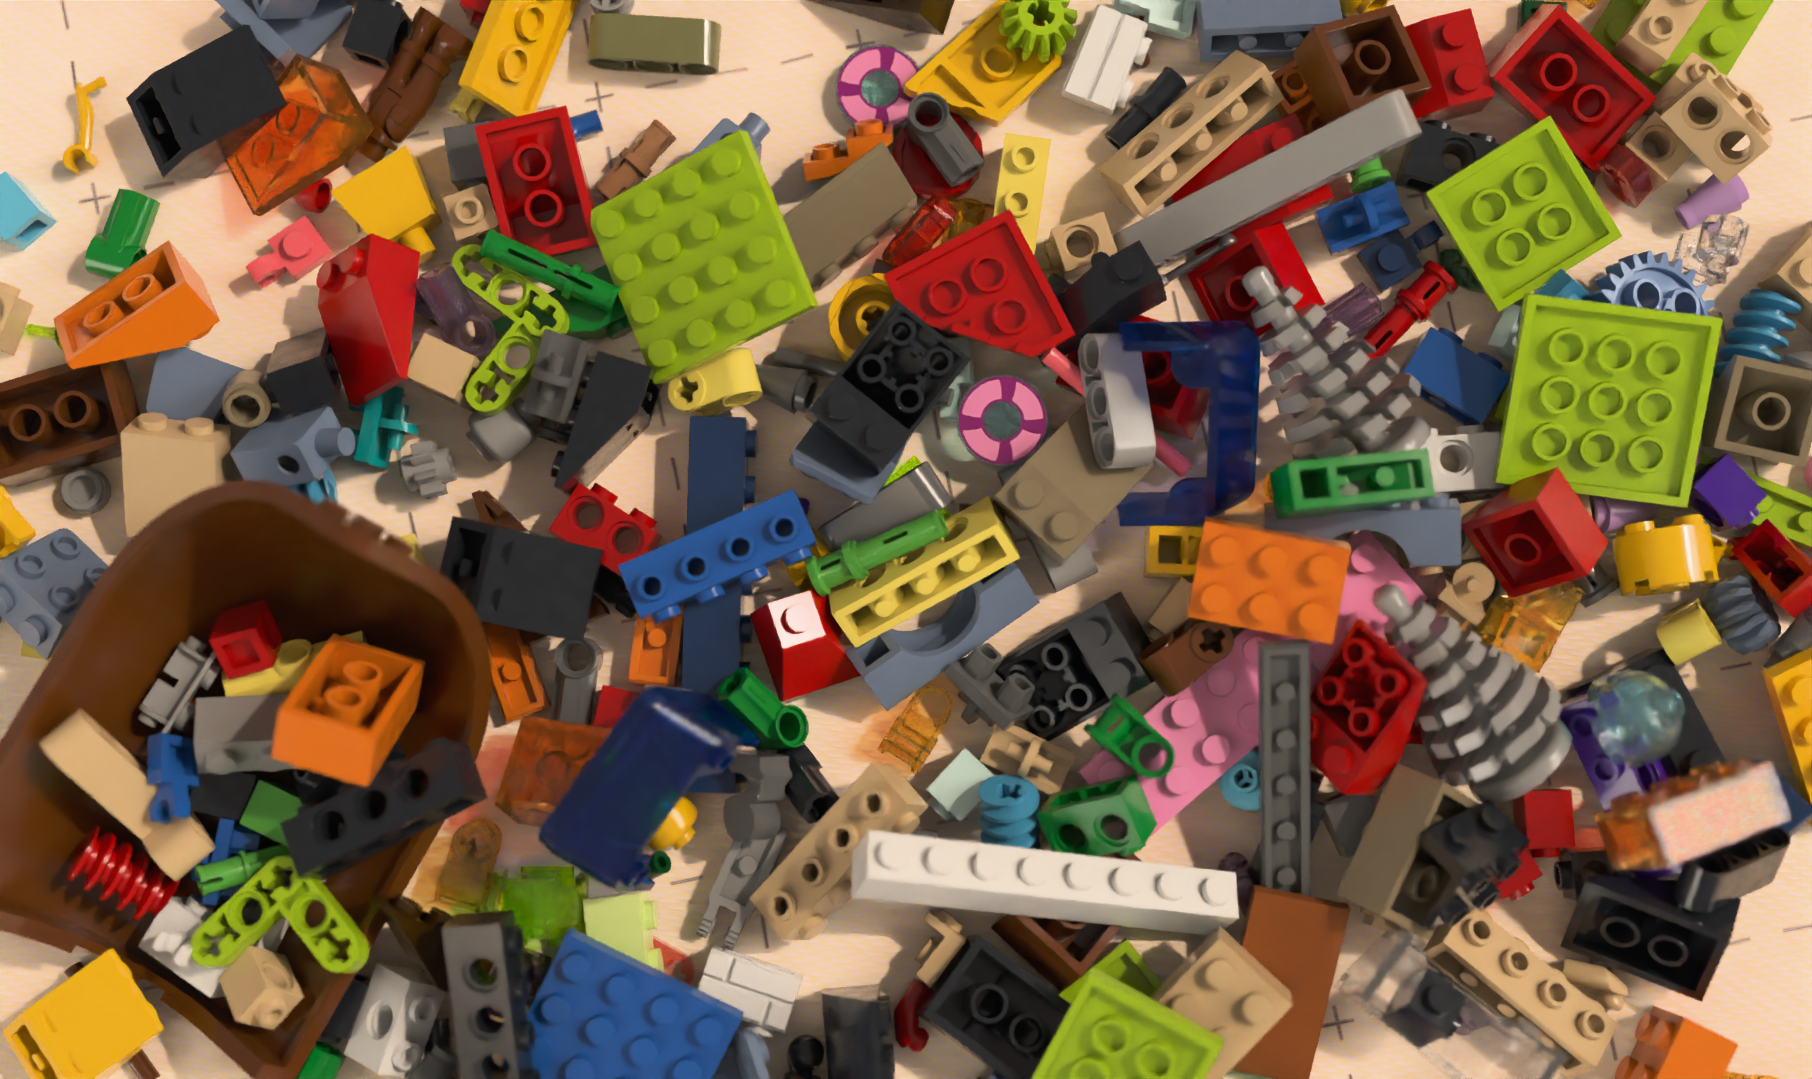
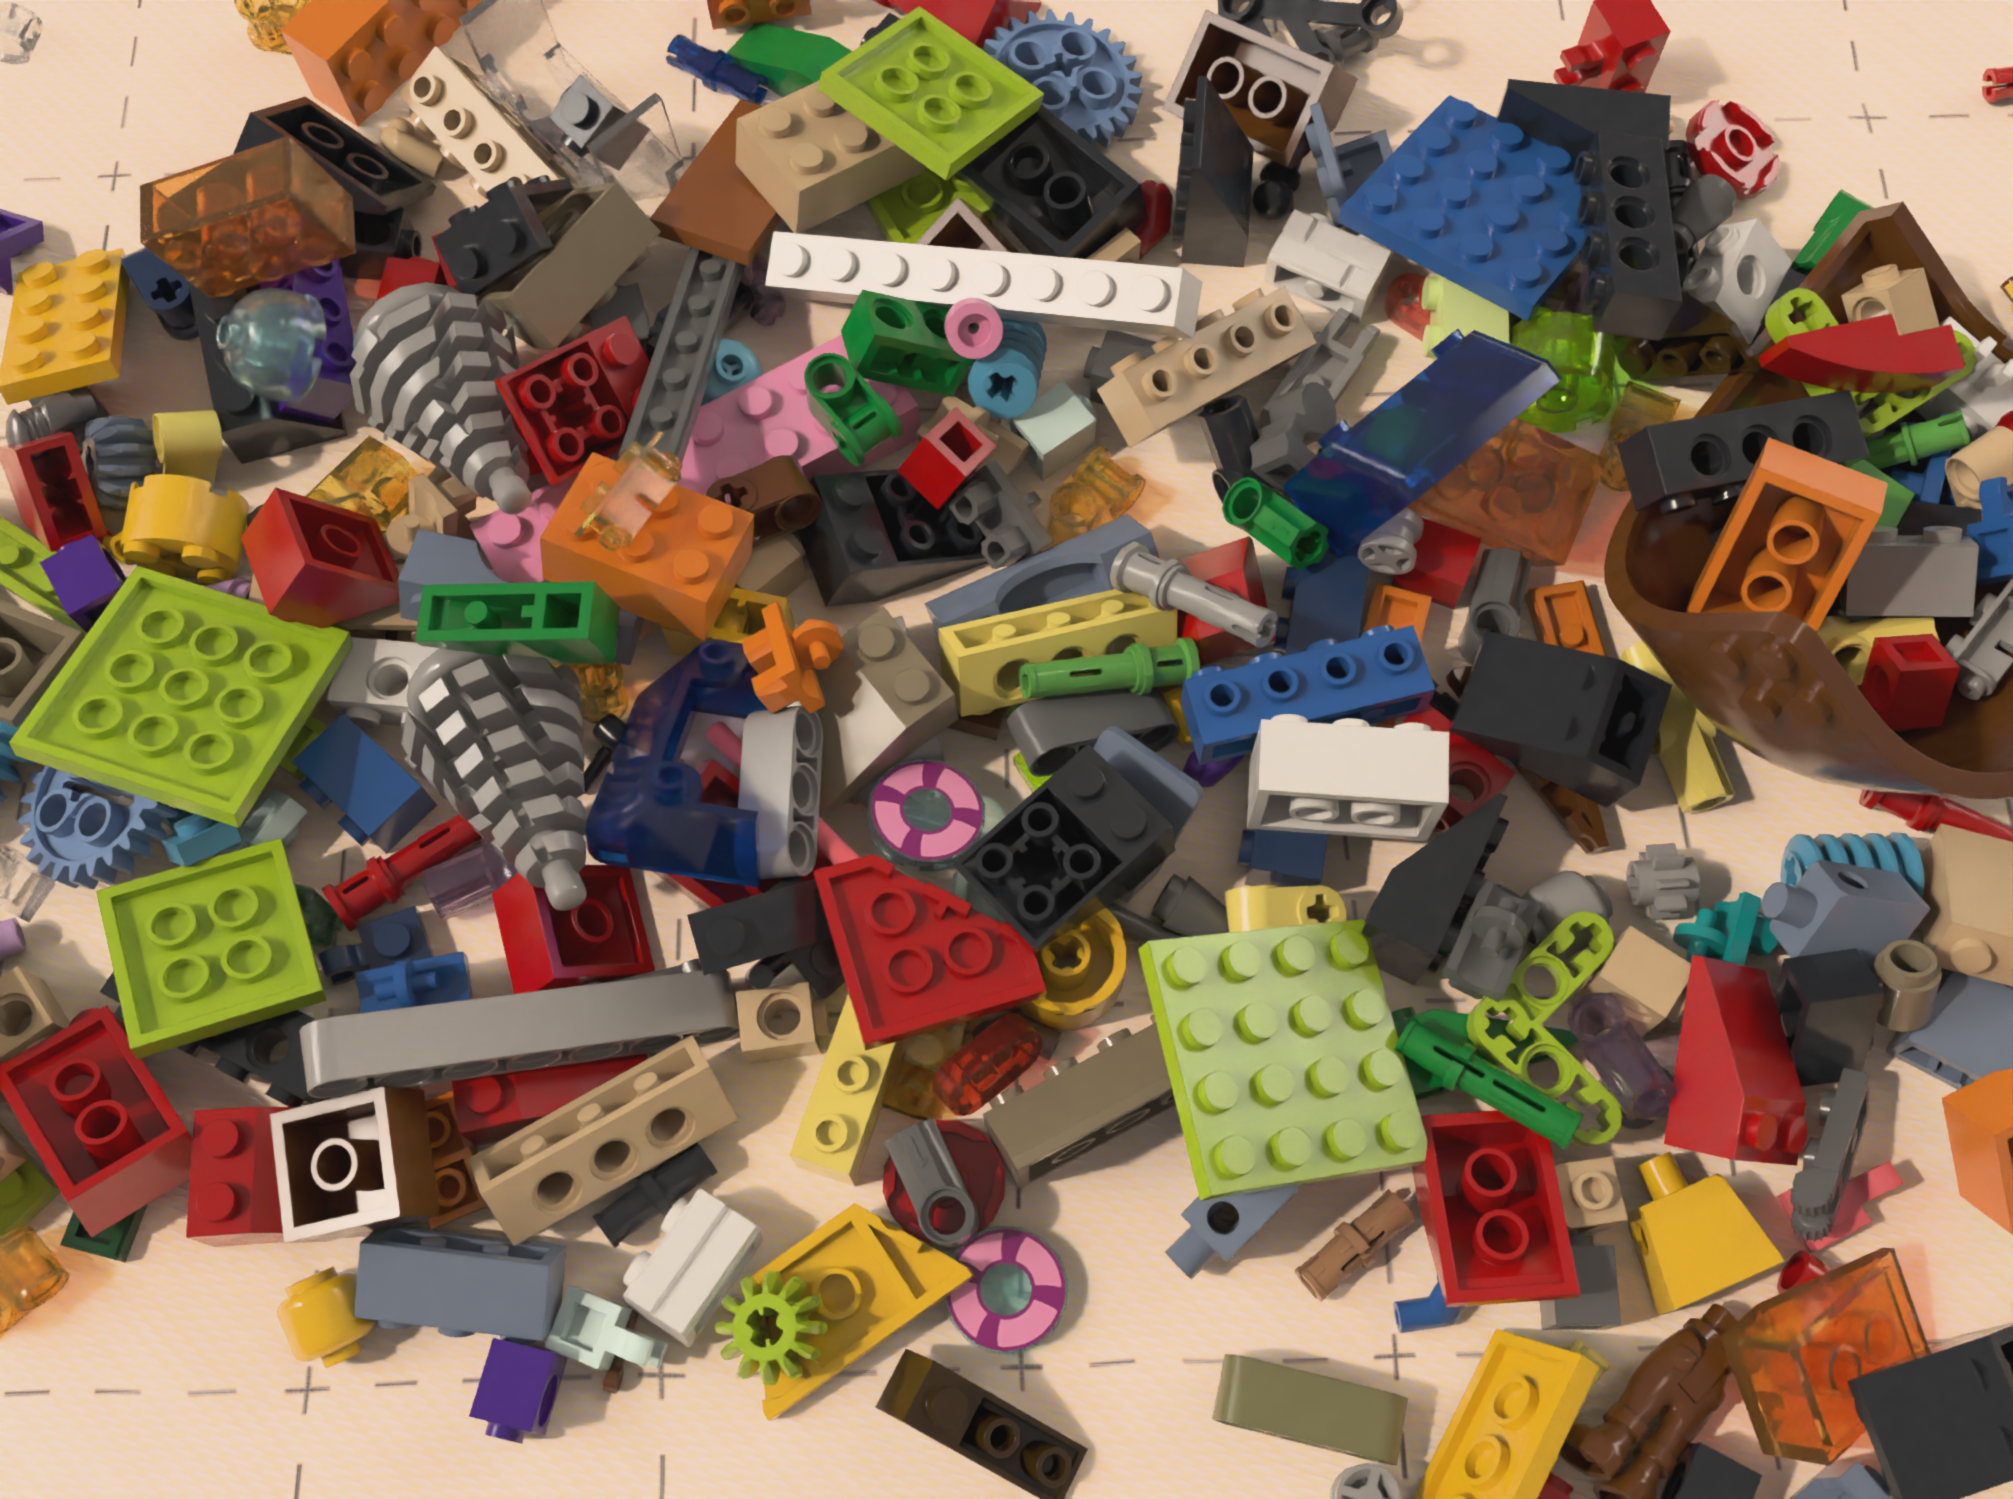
camera: 175 degrees left, 15 degrees down
(282, 910) = (1867, 357): none -> red slope
(298, 271) = (1829, 1160): none -> dark grey hinge
(678, 478) = (1348, 778): none -> white brick
(831, 160) = (1038, 1202): orange slope -> none
(837, 622) = (1172, 587): none -> light grey pin
(1040, 826) = (981, 337): none -> bright pink tile
(1043, 719) = (946, 458): none -> red brick
(1123, 501) = (789, 659): none -> orange hips
(1266, 453) = (608, 733): none -> black hand
(1285, 613) = (614, 509): none -> clear yellow hinge
(1625, 175) = (66, 983): clear red beam -> none

